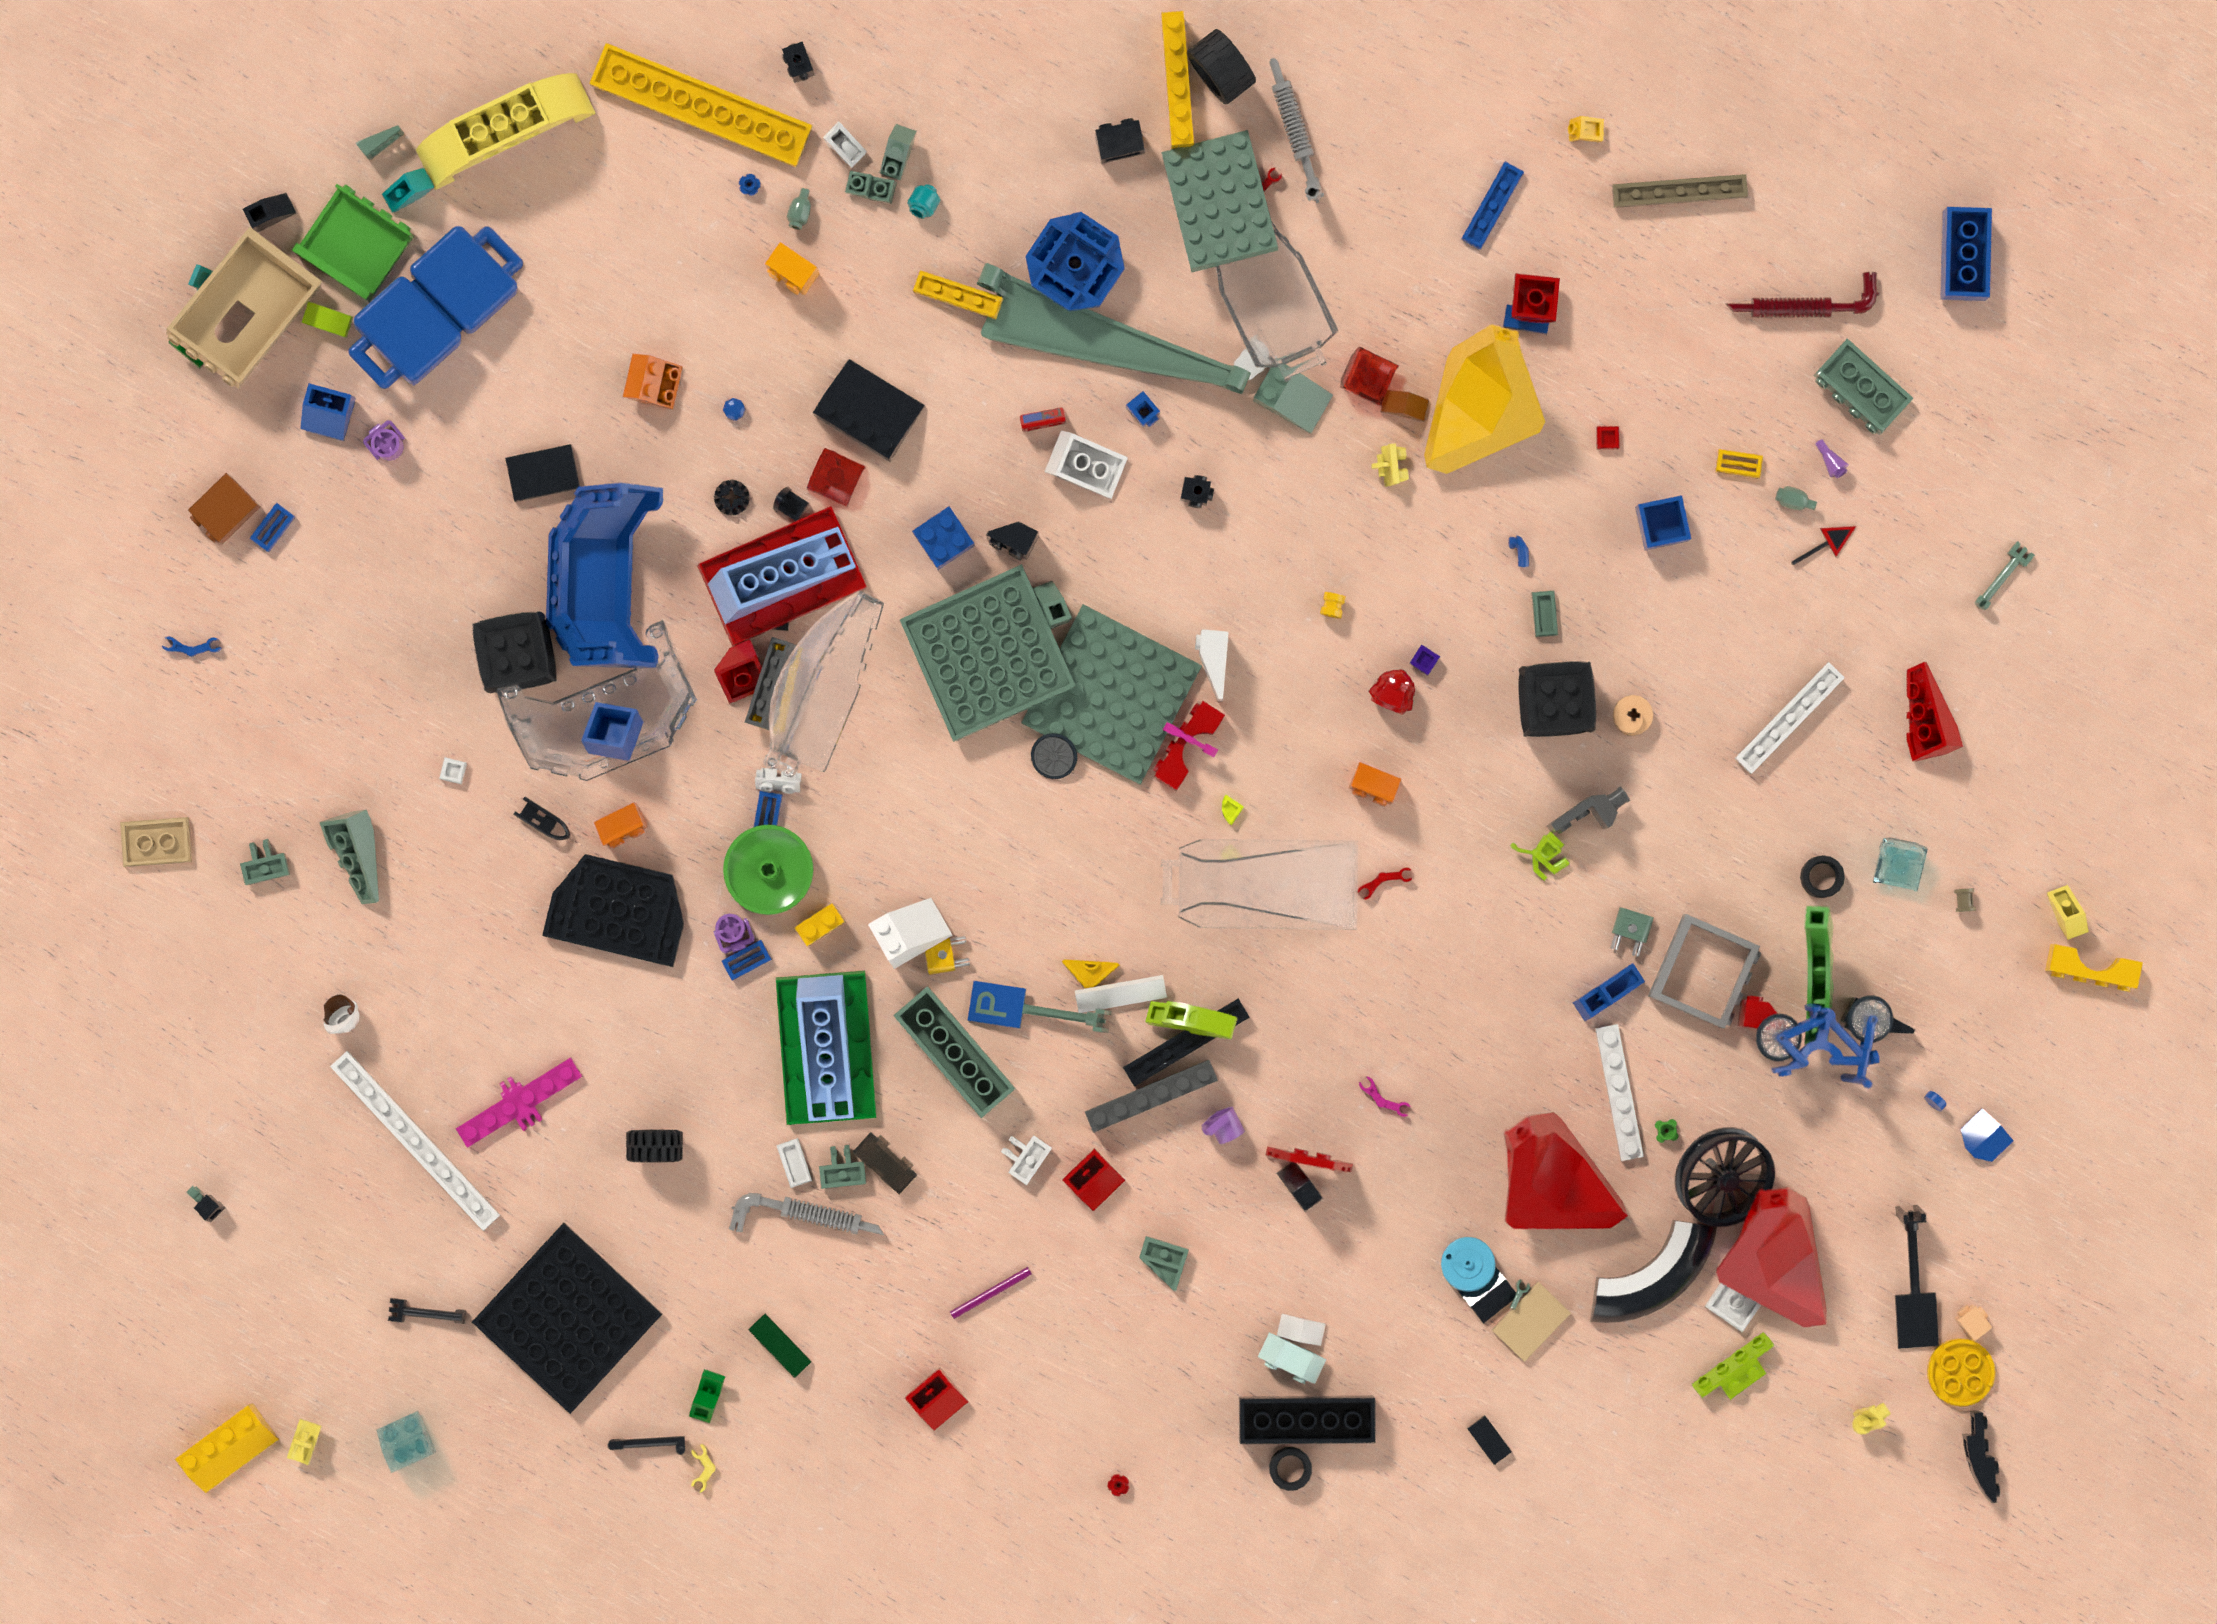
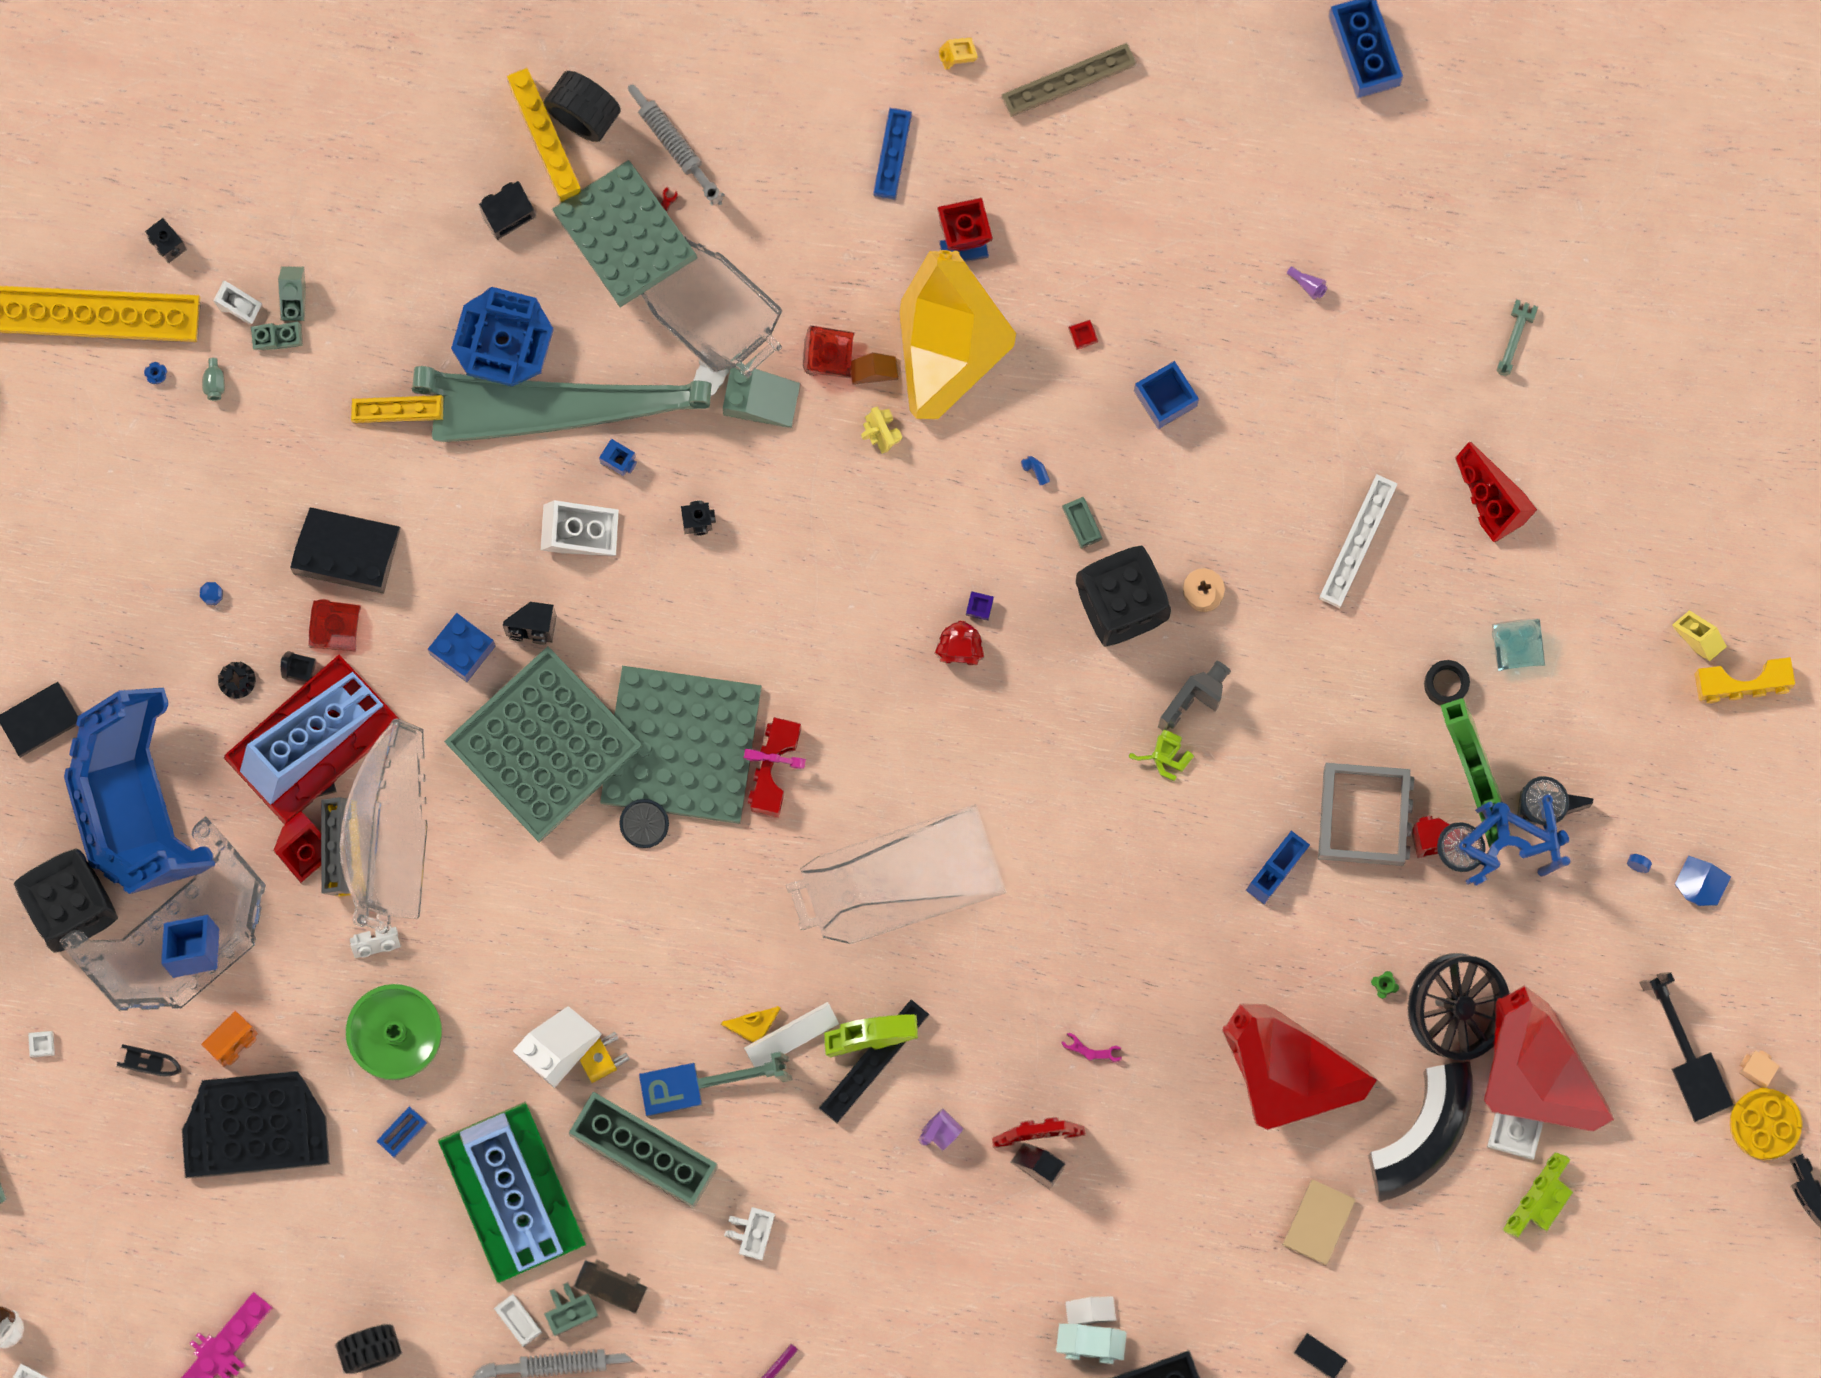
camera: 20 degrees left, 10 degrees down
(652, 381) = (120, 592): orange slope -> none
(731, 929) = (376, 1106): medium lavender piece -> none
(768, 809) = (372, 959): blue tile -> none
(792, 269) = (224, 437): light orange brick -> none
(820, 924) = (464, 1069): yellow brick -> none
(923, 201) = (333, 331): teal head -> none
(1042, 419) = (522, 502): red slope -> none
(1052, 604) = (593, 675): sand green slope -> none
(1093, 1179) = (827, 1230): red slope -> none
(1151, 1096) = (857, 1126): dark grey brick -> none
(1164, 1259) = (927, 1287): sand green wing -> none
(1213, 654) = (768, 670): white slope -> none
(1230, 809) = (839, 816): neon yellow tile -> none
(1332, 605) = (870, 583): yellow wheel -> none
(1375, 784) = (973, 742): orange slope -> none
(1382, 877) = (1013, 831): red piece -> none
(1468, 1264) = (1235, 1185): medium azure wheel -> none
(1491, 1298) = (1264, 1207): black slope -> none
(1519, 1293) = (1297, 1197): sand green hand -> none
(1619, 1092) = (1324, 963): white plate -> none
(1632, 926) = (1278, 795): sand green piece -> none
(1720, 461) = (1220, 325): yellow tile -> none
(1794, 499) = (1285, 331): sand green plant -> none
(1810, 307) = (1234, 146): dark red piece -> none
(1835, 538) = (1339, 355): piece -> none
(1862, 387) = (1312, 204): sand green bracket -> none
(1870, 1418) = (1693, 1198): light yellow hips -> none
(1965, 900) = (1594, 657): dark tan bush -> none

